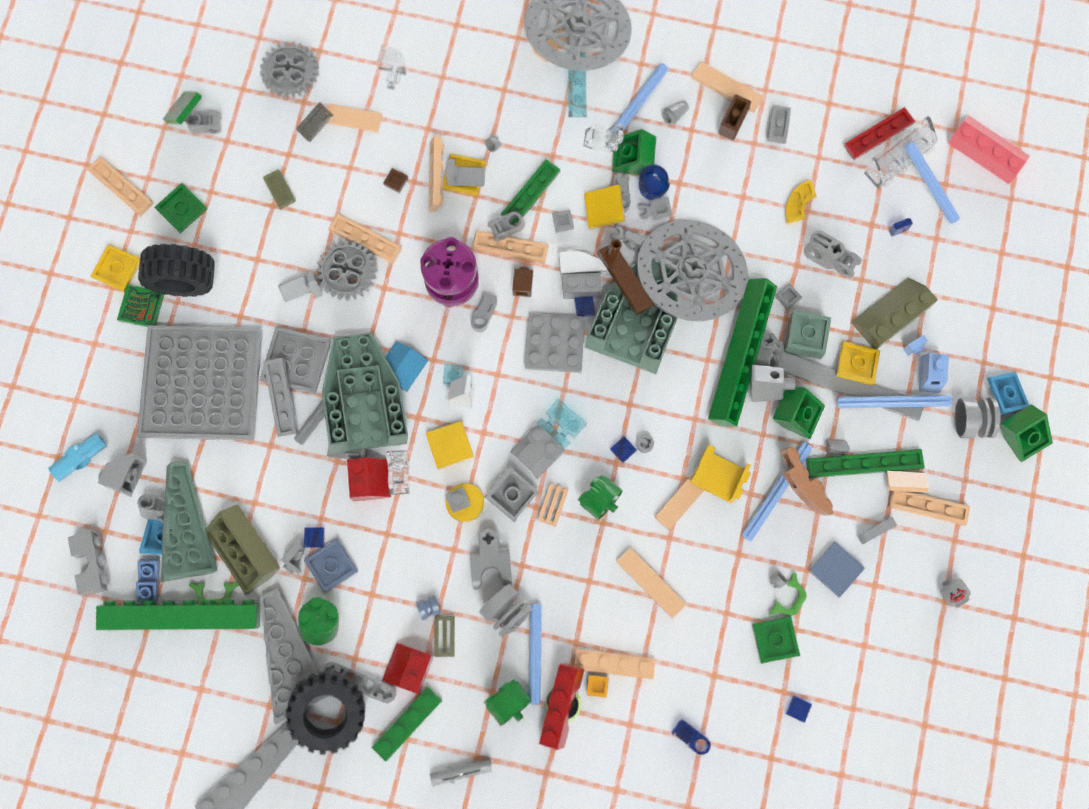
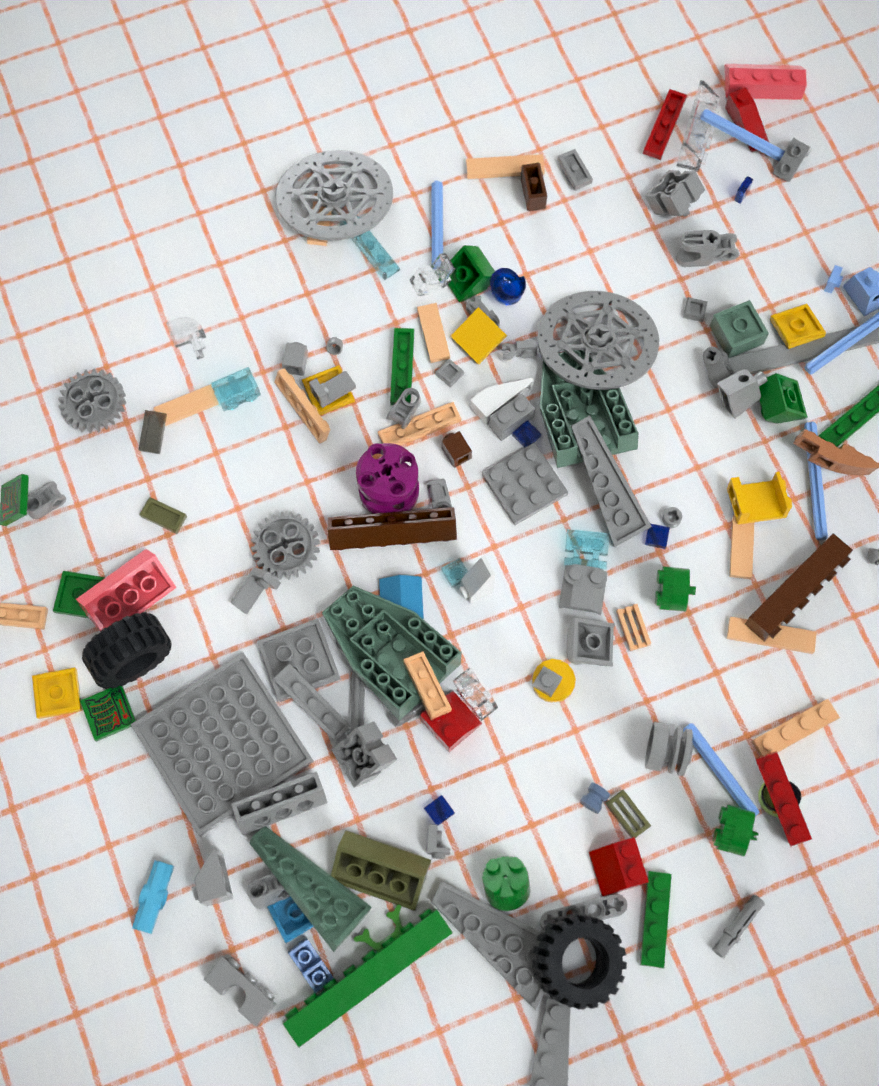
camera: 35 degrees left, 5 degrees down
(206, 452) = (279, 803): none -> light grey brick
(211, 228) = (127, 591): none -> coral slope
(288, 460) = (364, 754): none -> light grey brick
(331, 566) = (474, 825): sand blue tile -> none
(366, 441) = (427, 685): none -> light nougat tile
(375, 243) = (265, 507): light nougat tile -> none
(395, 180) = (268, 436): reddish brown tile -> none
(396, 129) = (236, 389): none -> clear light blue brick
(430, 310) = (392, 528): none -> reddish brown brick
(449, 445) = (500, 638): yellow tile -> none
(456, 134) = (295, 358): none -> light grey brick
(489, 557) = (614, 712): light grey piece -> none
(574, 182) = (433, 332): none -> light nougat tile
(597, 686) = (797, 759): light orange plate -> none
(609, 401) = (615, 498): none -> light grey wing
(624, 277) = (545, 382): reddish brown piece -> none
(659, 209) = (526, 306): light grey plate -> none
(675, 112) = (477, 216): light grey cone -> none
(698, 561) = (799, 587): none -> reddish brown brick
(742, 352) = (696, 381): green brick -> none
(797, 202) = (640, 224): yellow tile -> none
(837, 446) = (835, 408): light grey slope -> none
(840, 194) = (675, 193): none -> light grey brick
(894, 312) = (794, 263): olive slope -> none
(950, 167) = (745, 114): none -> red slope
(960, 227) = (792, 159): none -> light grey bracket

